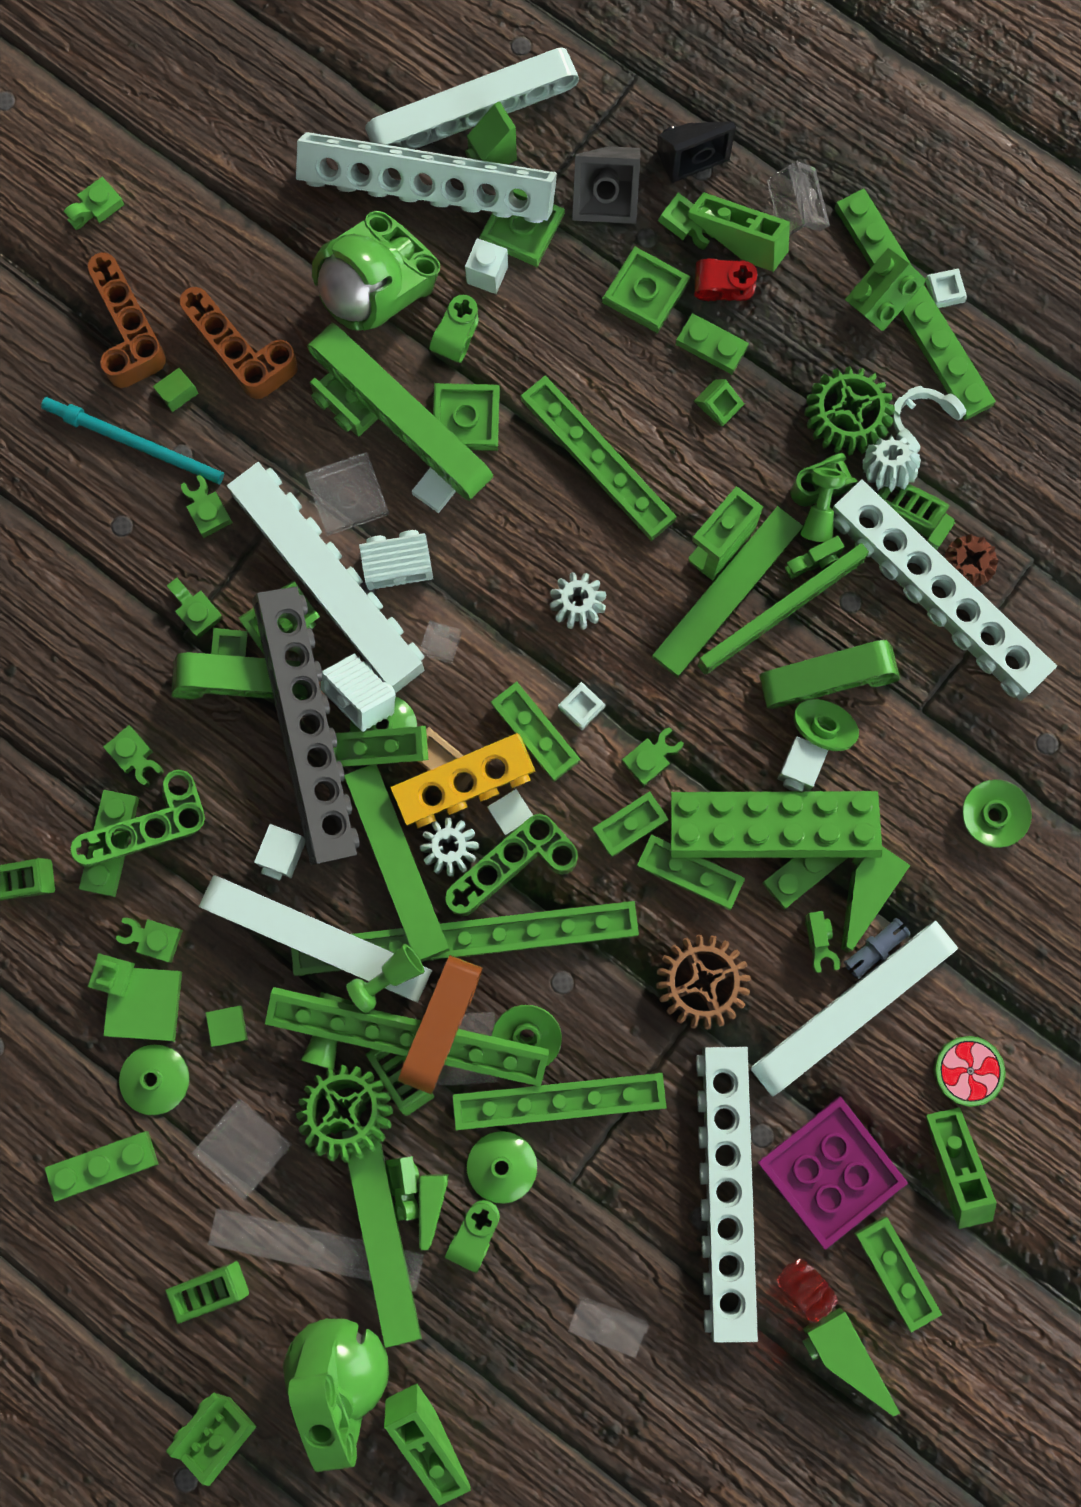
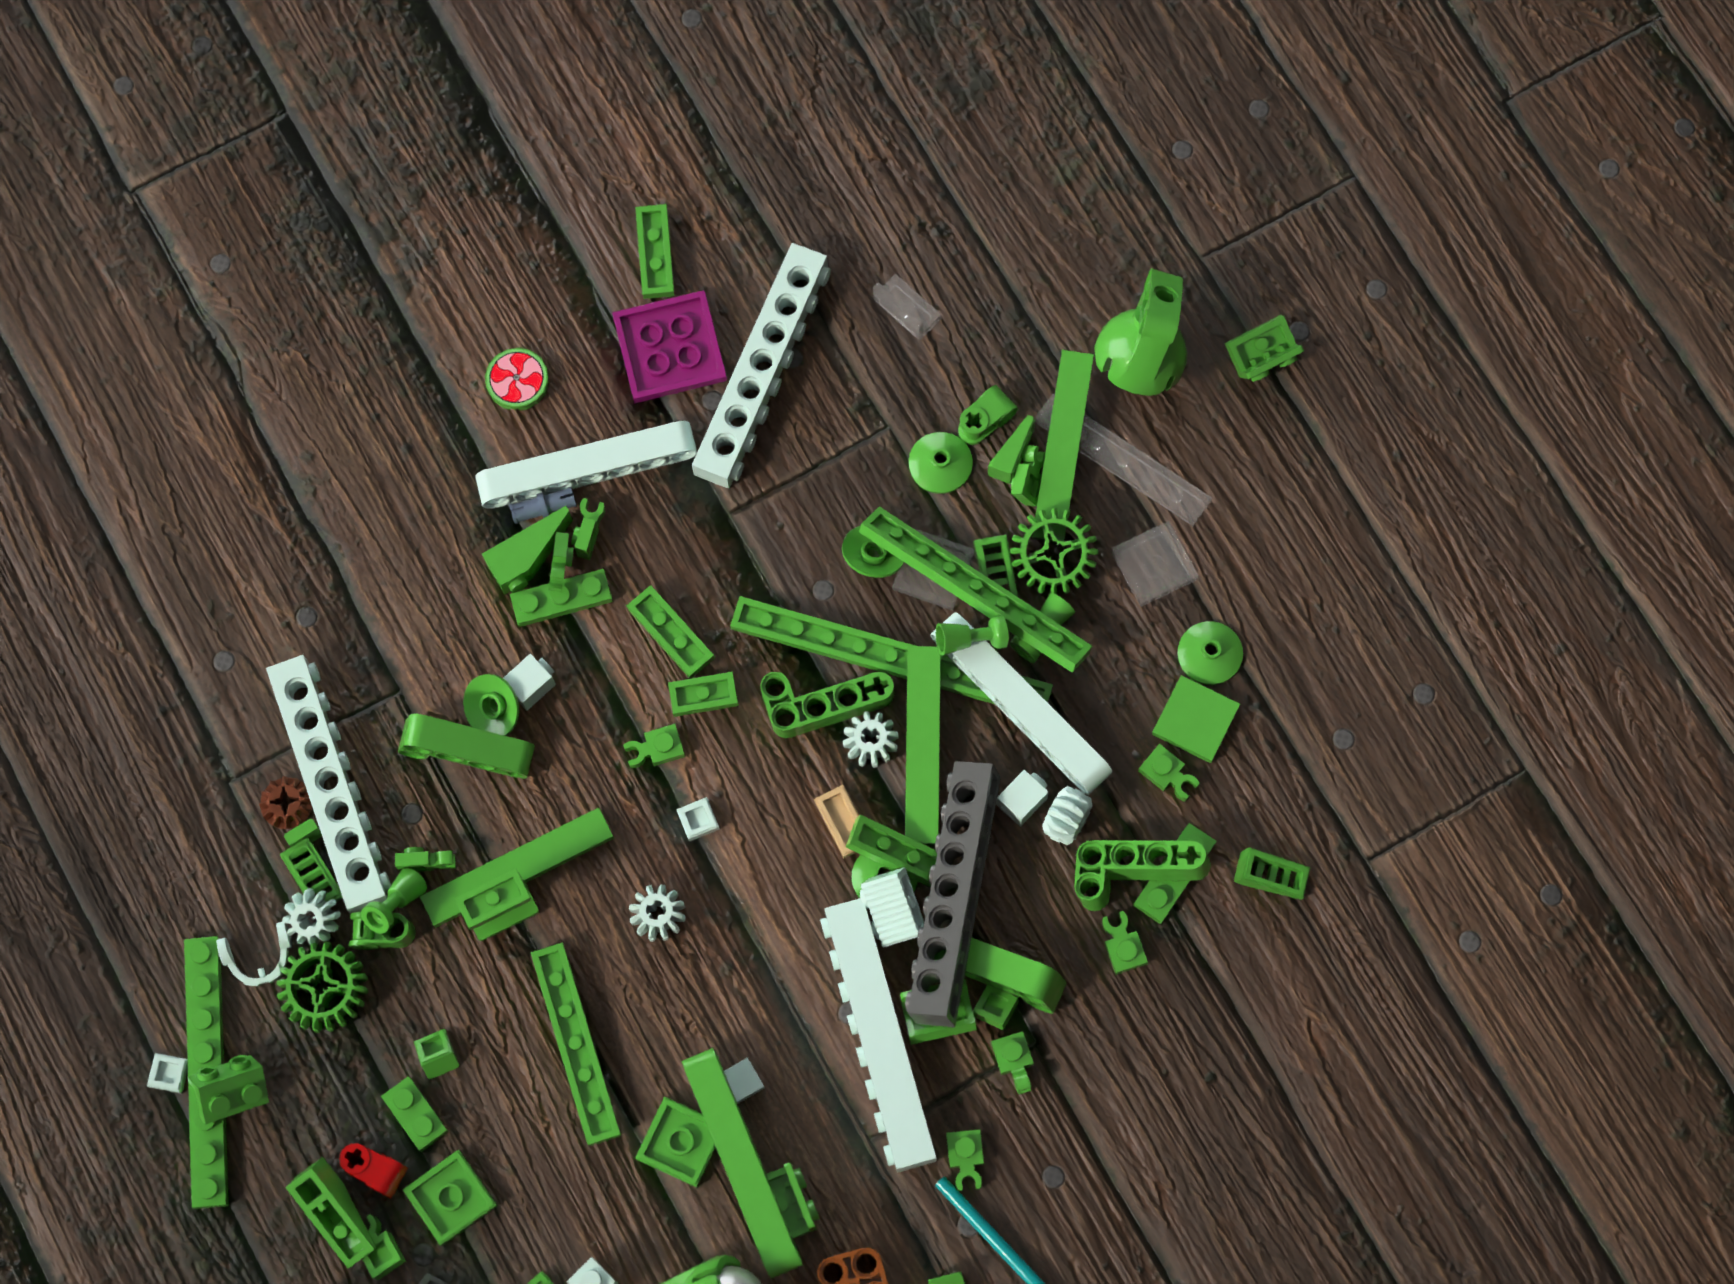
camera: 155 degrees left, 5 degrees down
(101, 1166) = (1281, 598): bright green plate -> none
(111, 975) = (1213, 750): bright green tile -> none
(226, 1026) = (1129, 670): bright green tile -> none
(227, 848) = (1067, 815): none -> light aqua gear
(229, 1285) = (1202, 470): bright green slope -> none
(347, 493) = (825, 1112): clear tile -> none
(395, 560) = (806, 1023): light aqua brick -> none
(411, 793) = (816, 799): yellow brick -> none
(424, 1443) = (1092, 278): bright green slope -> none
(440, 641) = (799, 932): clear tile -> none
(440, 1024) = (939, 580): dark orange beam -> none
(455, 333) = (657, 1225): bright green piece -> none
(510, 812) = (803, 750): light aqua tile -> none
(536, 731) = (749, 811): bright green plate -> none
(559, 1101) = (869, 491): bright green plate -> none
(731, 970) = (691, 535): medium nougat gear -> none
(776, 824) = (578, 637): bright green plate -> none
(782, 609) = (477, 826): bright green tile -> none
(798, 197) = (261, 1224): clear panel -> none
(807, 1290) = (734, 264): clear red gear -> none
(831, 898) = (561, 557): none -> bright green plate
(843, 1353) = (728, 209): bright green slope -> none
(961, 1169) = (563, 308): bright green slope -> none
(1013, 812) = (375, 559): bright green dish -> none

